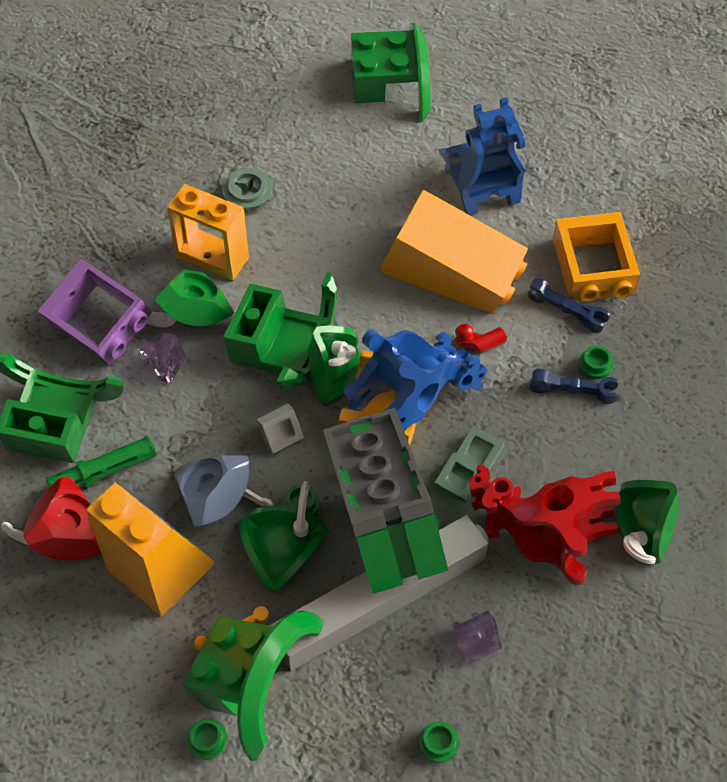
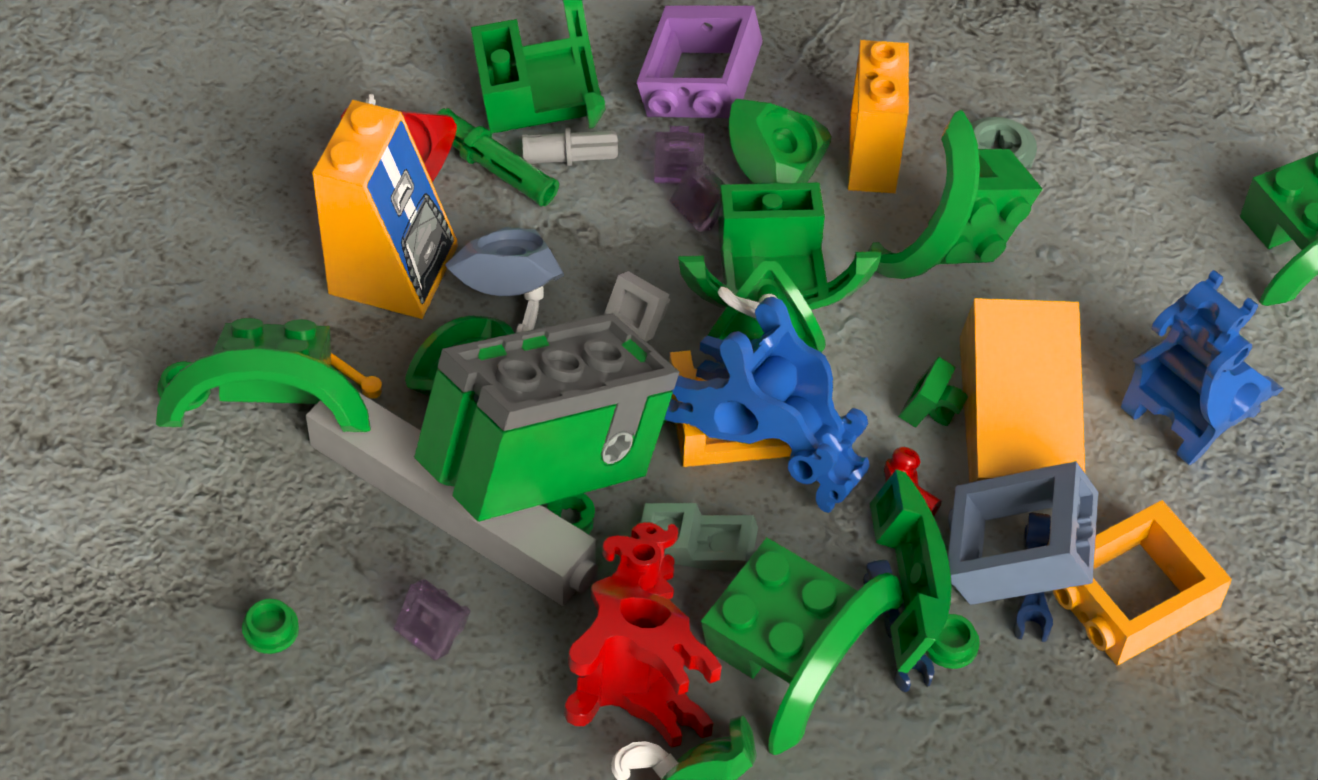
camera: 65 degrees right, 5 degrees down
(117, 420) = (570, 146): none -> light grey axle
(207, 357) = (698, 196): none -> tile
(314, 222) = (979, 208): none -> green piece
(422, 299) = (934, 396): none -> green tile
(555, 354) = (907, 525): none -> green slope
(569, 261) = (1030, 571): none -> sand blue window
(572, 430) = (793, 624): none -> green piece

